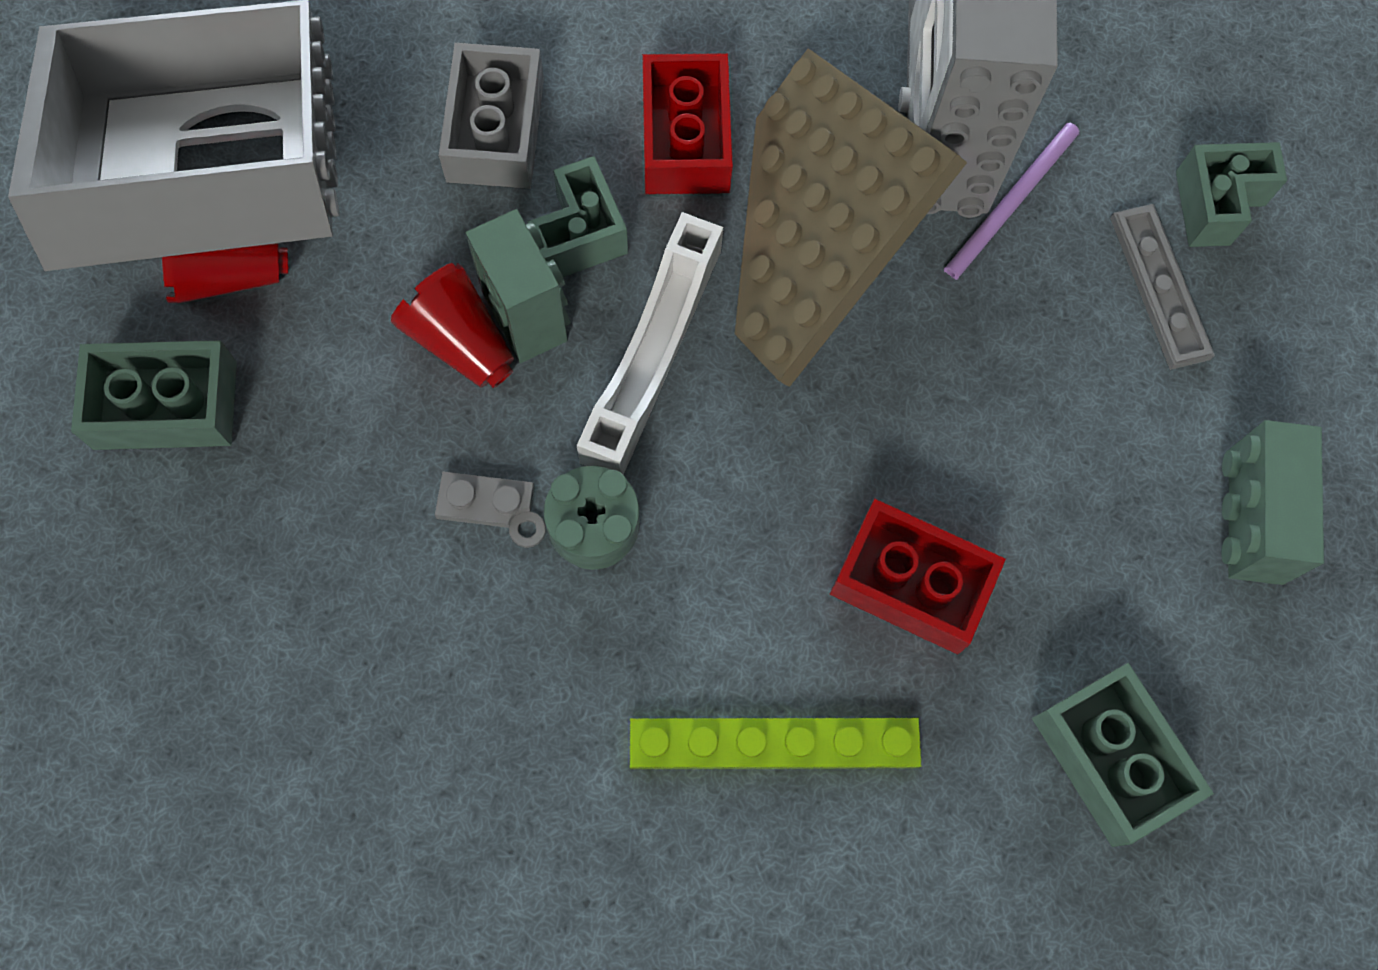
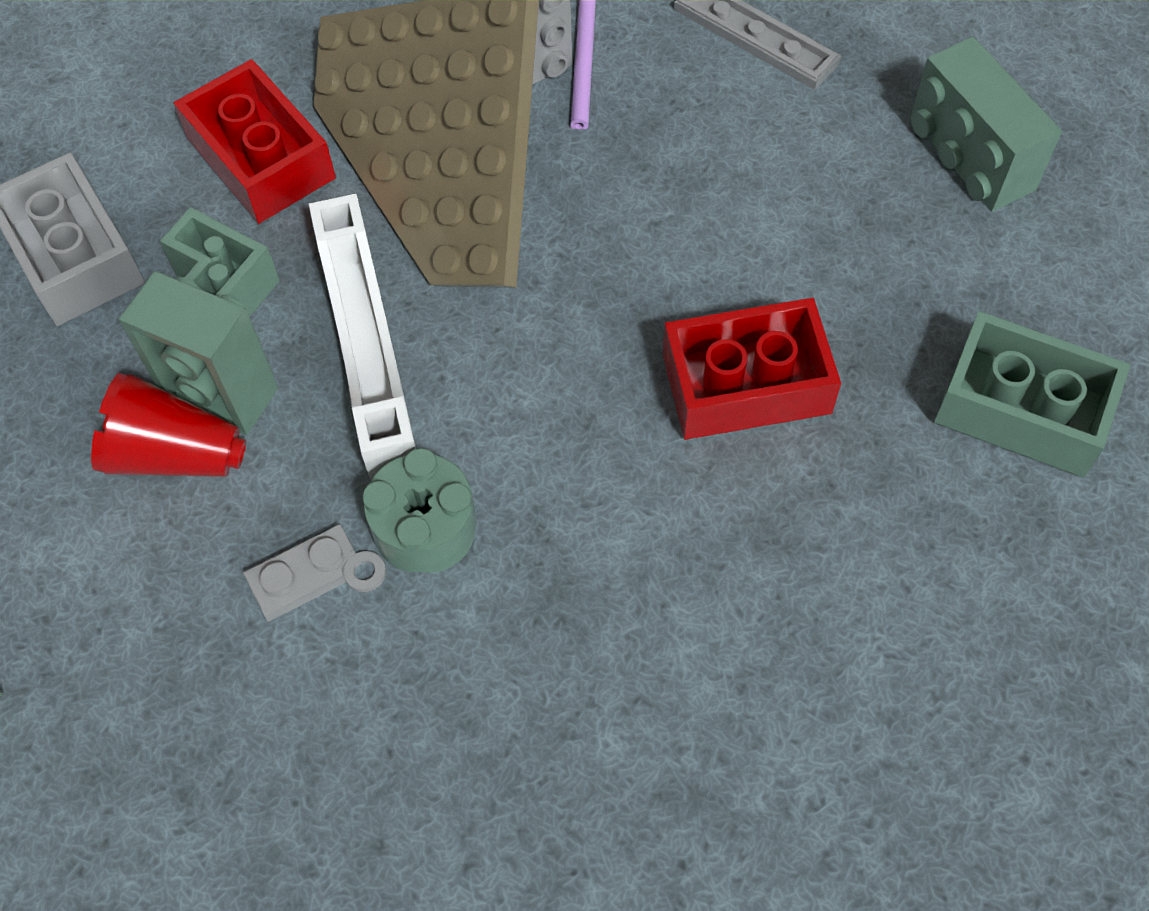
camera: 30 degrees left, 10 degrees down
(774, 743) = (734, 598): lime plate -> none

